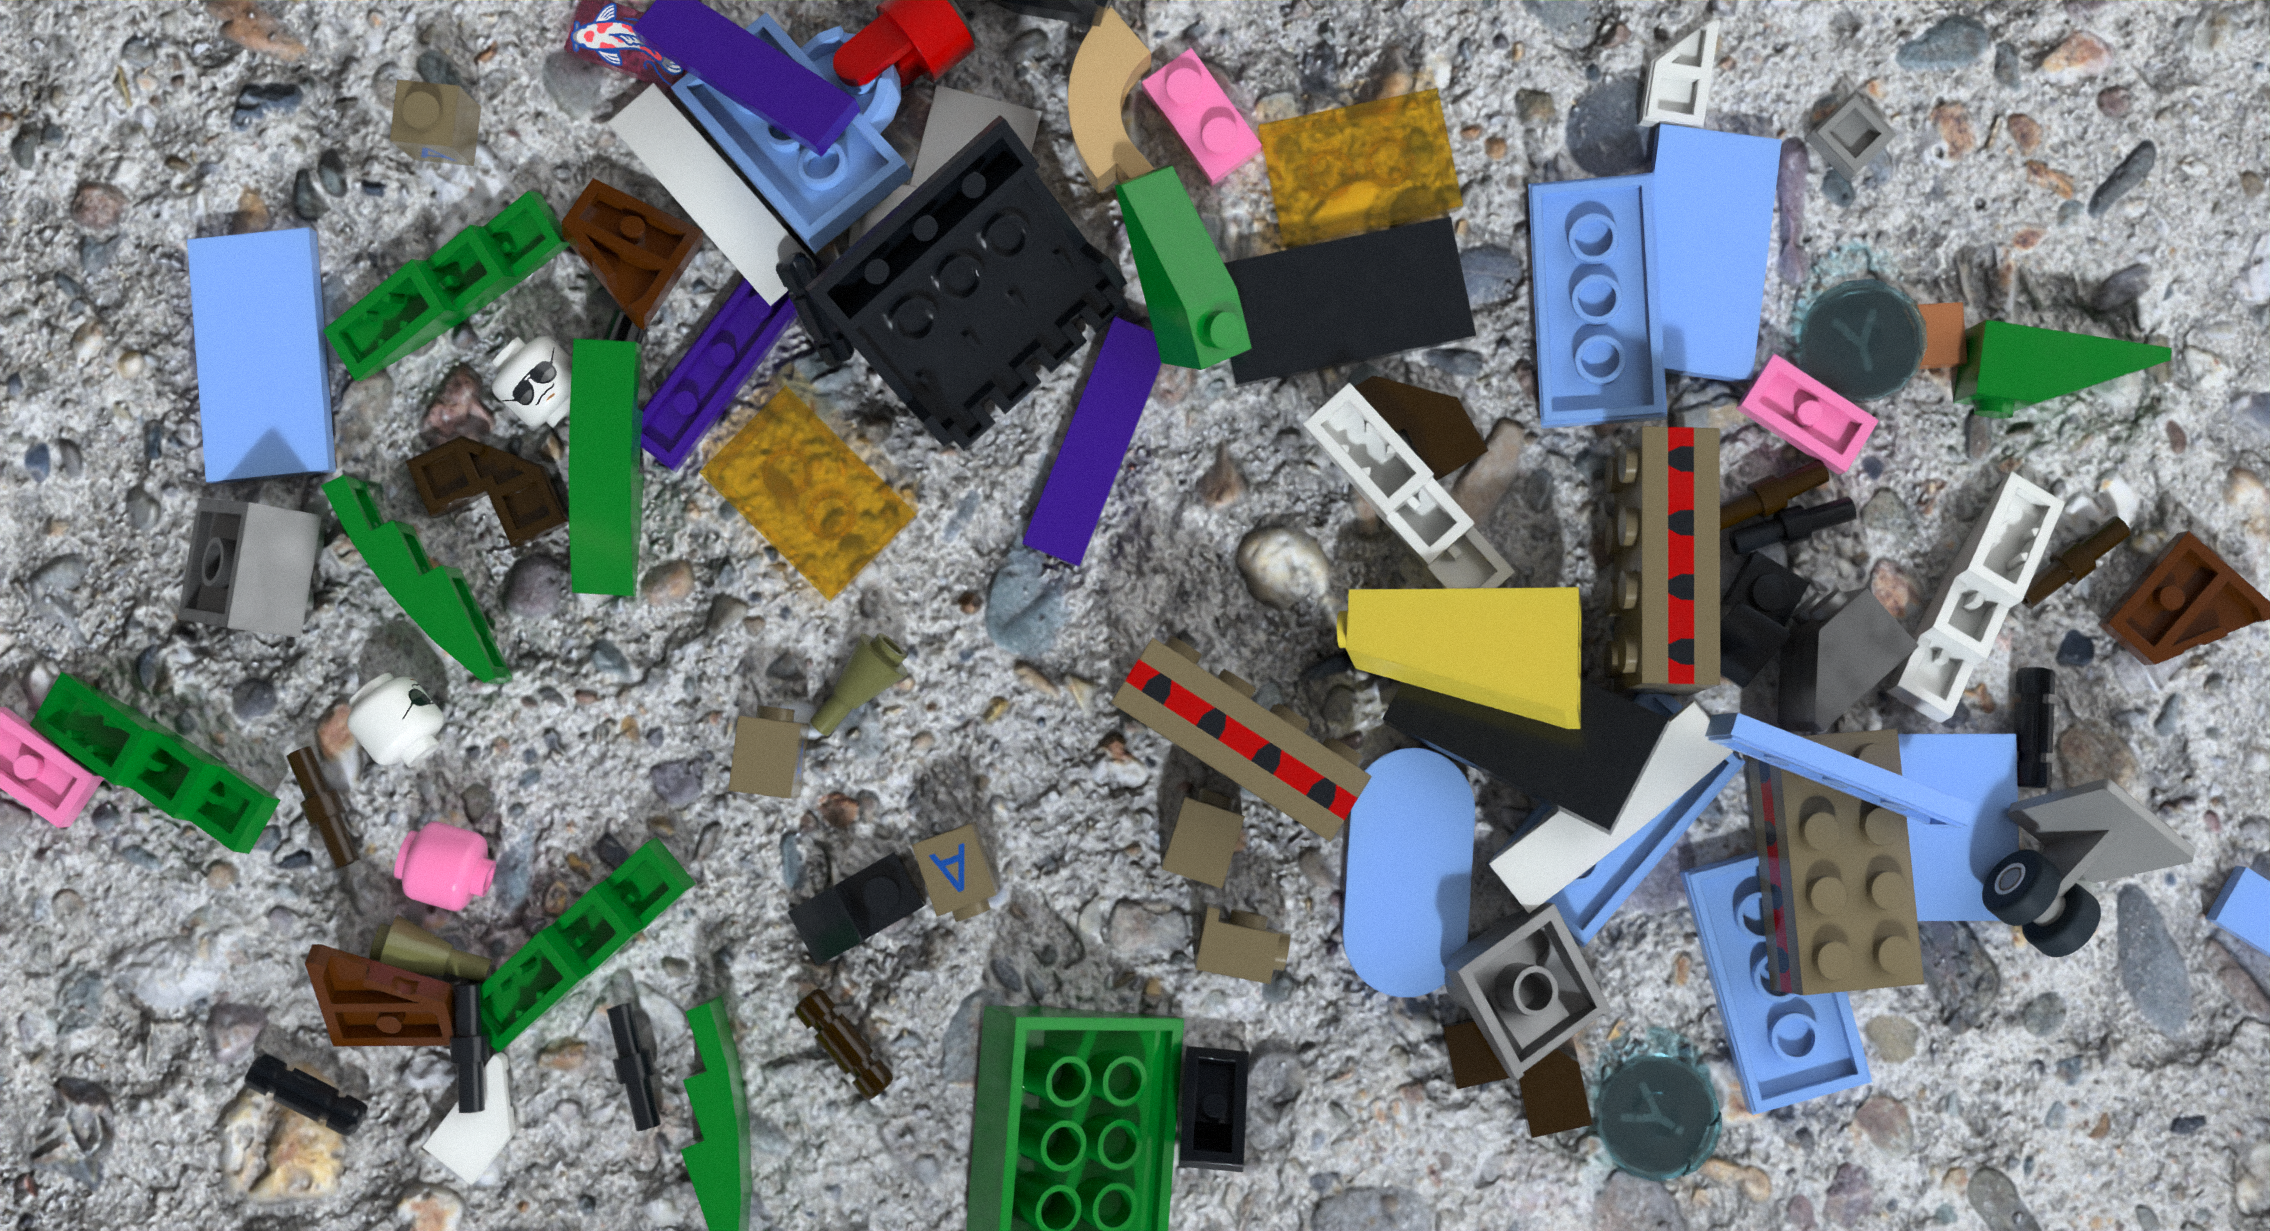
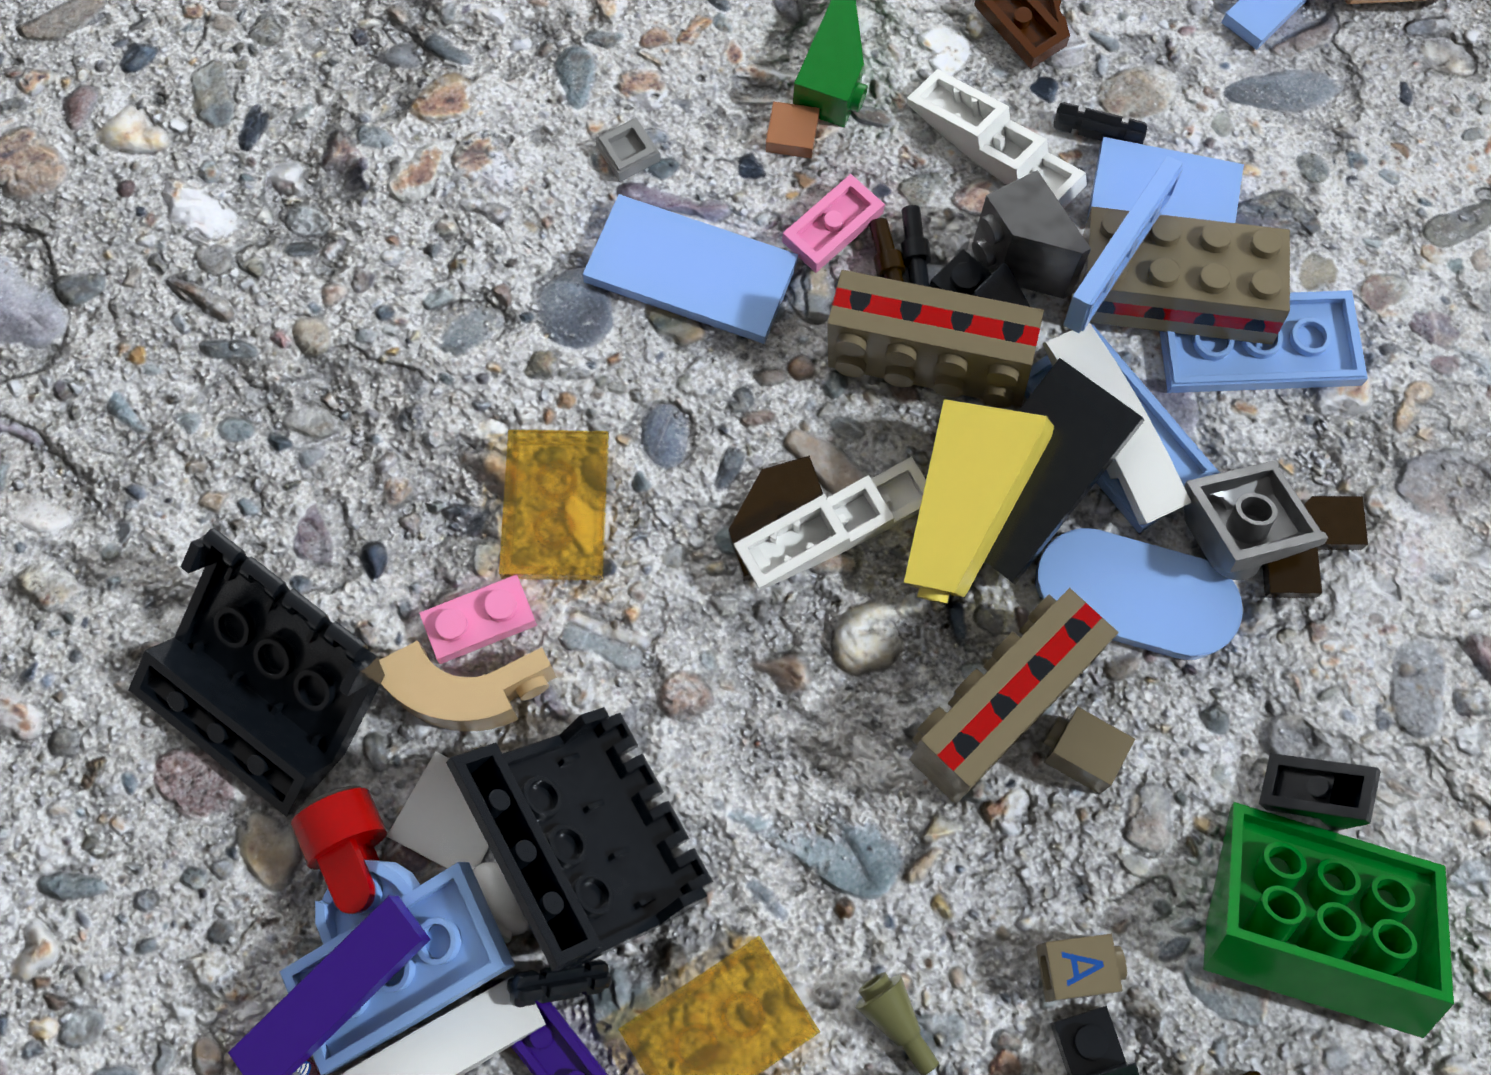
camera: 80 degrees left, 15 degrees down
(1095, 443) = (731, 766): dark purple tile -> none
(1181, 273) = (615, 655): green slope -> none
(1240, 945) = (1181, 740): dark tan brick -> none
(1350, 301) = (661, 543): black tile -> none
(1597, 301) = (710, 349): light blue tile -> none
(1657, 1117) = (1360, 449): clear light blue tile -> none
(1680, 81) = (552, 256): white tile -> none
(1863, 340) = (785, 172): clear light blue tile -> none
(2075, 561) = (980, 69): dark brown bar -> none
(2086, 833) = (1191, 108): light grey plate -> none

